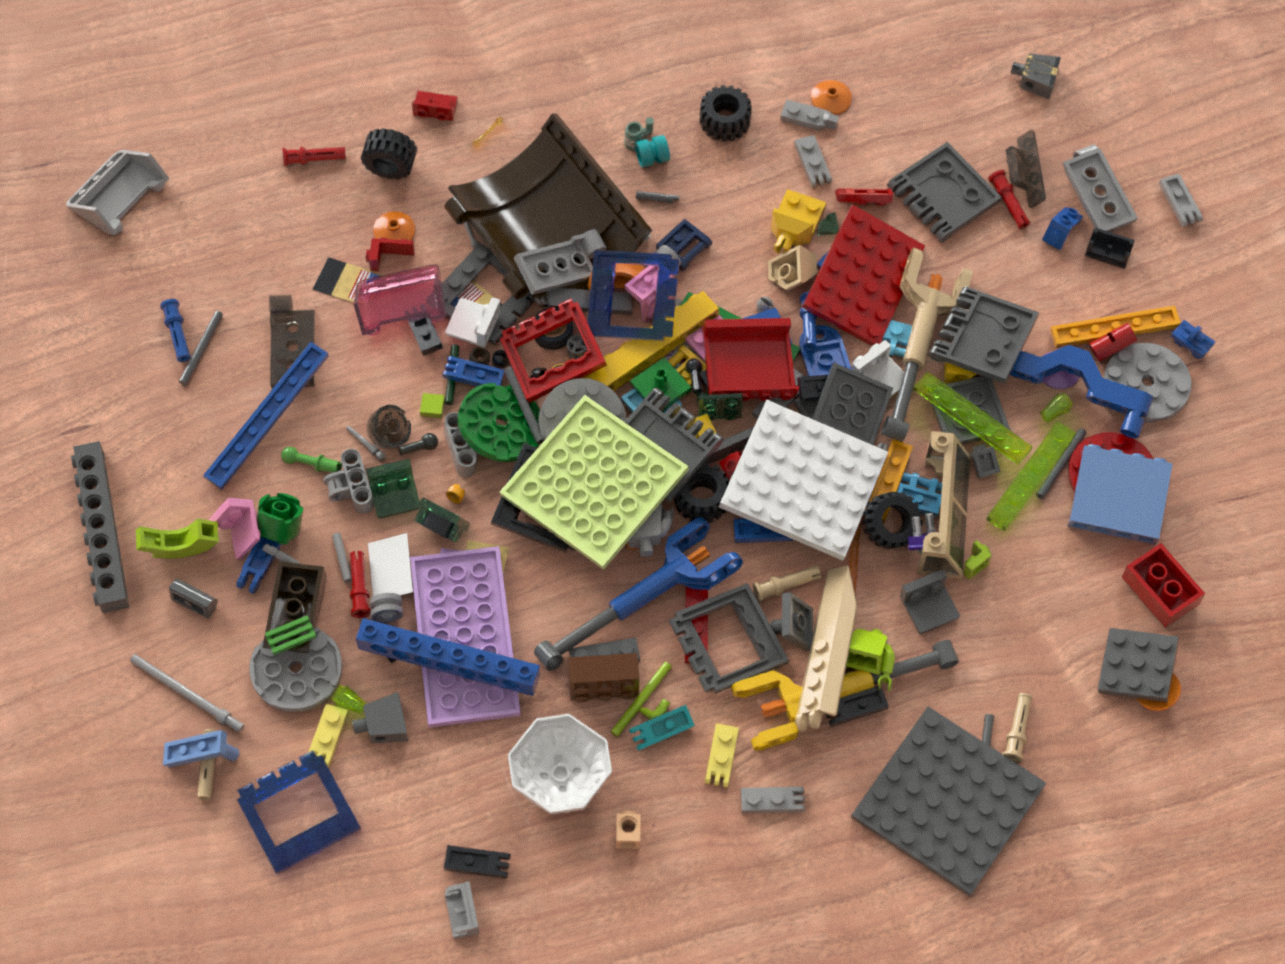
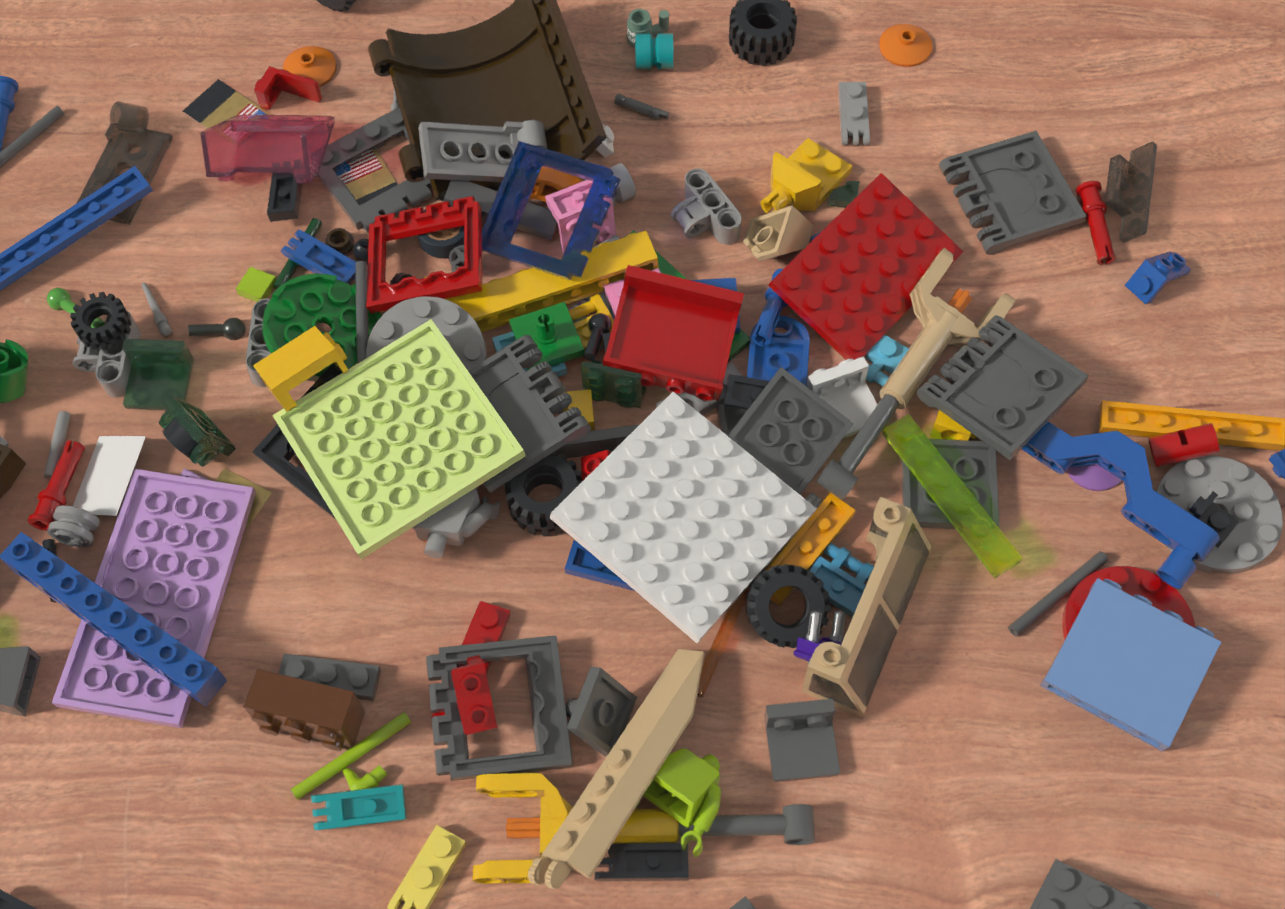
camera: 20 degrees right, 0 degrees up
(342, 472) = (95, 308): none -> black tyre
(388, 427) = (192, 290): clear smoke cylinder -> none
(455, 493) = (232, 403): light orange hinge -> none
(474, 321) = (348, 195): white bracket -> none
(503, 452) = (298, 362): none -> yellow panel
(559, 764) = (182, 822): white rock -> none
(676, 570) = (465, 590): blue piece -> none
(683, 236) = (649, 163): dark blue plate -> none
(713, 634) = (473, 696): none -> red bracket
(731, 269) = (697, 215): none -> light grey piece
(762, 306) = (720, 270): light grey hinge -> none
(777, 585) = (596, 650): tan pin -> none
(808, 116) = (867, 59): light grey hinge -> none
(863, 196) = (901, 170): red hinge -> none
(978, 561) = (889, 703): lime bracket -> none
(984, 461) = (949, 559): dark grey bracket -> none
(1030, 476) = (1008, 599): clear neon green plate -> none
(1037, 73) = (1183, 77): dark grey torso -> none
(1057, 406) = (1077, 512): clear neon green cone -> none
(1093, 159) = (1228, 200): light grey hinge -> none
(1109, 248) = (1216, 318): black hinge -> none
(1146, 384) = (1214, 516): none -> black bracket
(1163, 585) = (1156, 819): red brick -> none

